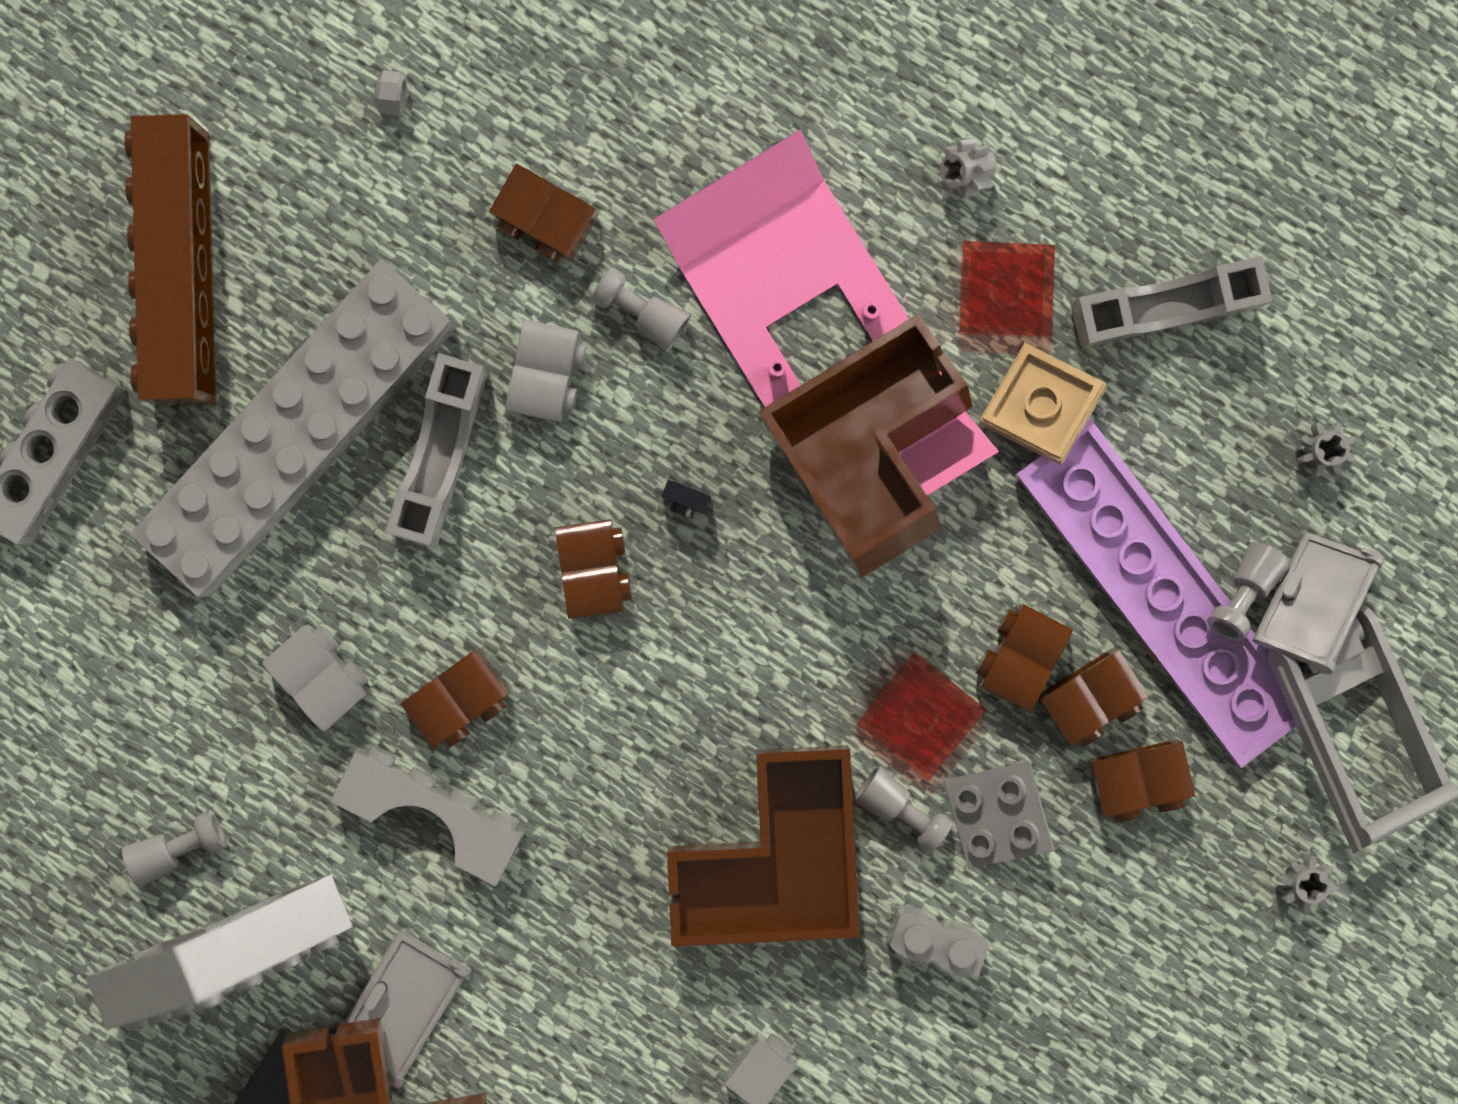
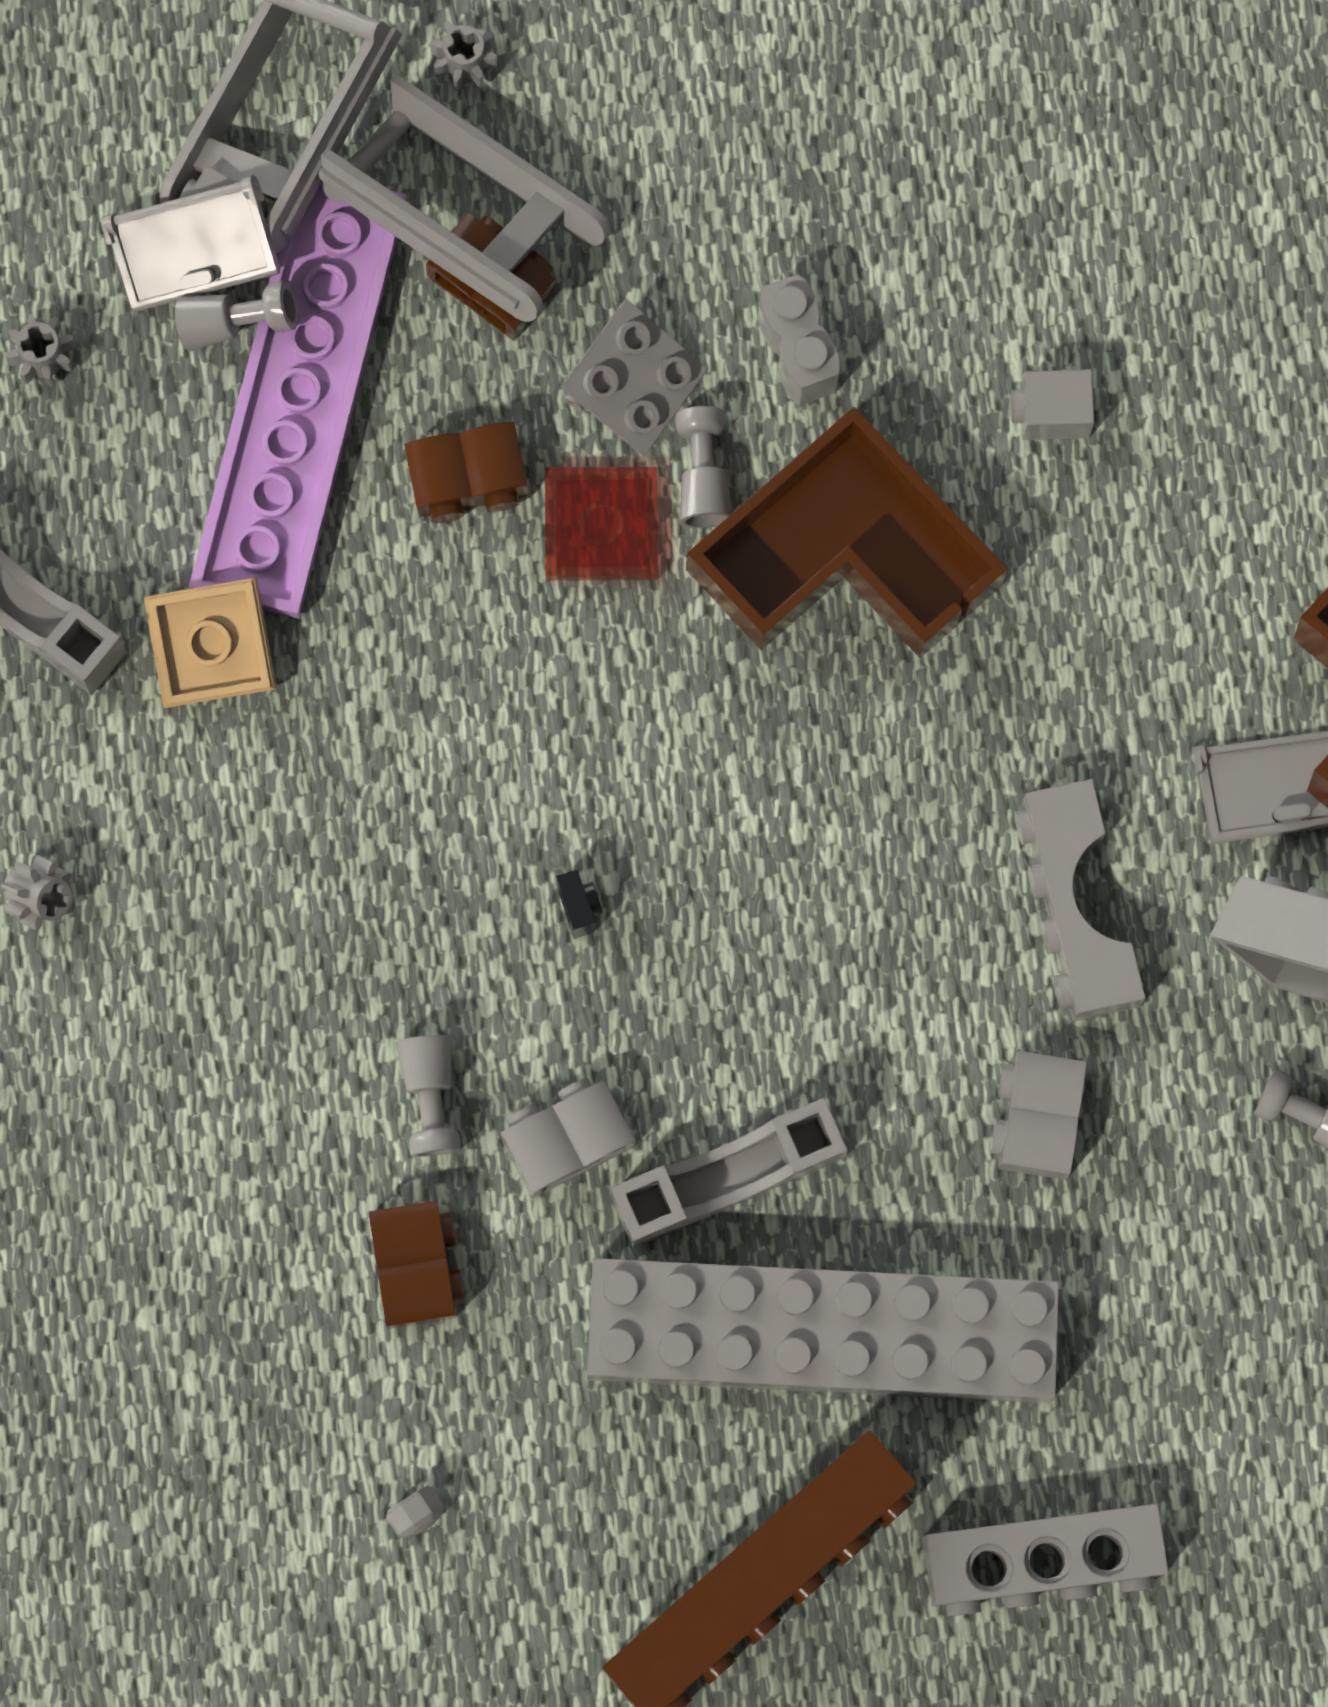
camera: 135 degrees left, 10 degrees down
(456, 699) = (950, 964): reddish brown brick -> none
(592, 569) = (717, 939): reddish brown brick -> none
(773, 243) = (359, 771): bright pink piece -> none
(847, 437) = (387, 794): reddish brown piece -> none
(1006, 289) = (126, 767): clear red tile -> none
(1093, 697) = (451, 378): reddish brown brick -> none
(1143, 778) = (483, 271): none -> light grey piece

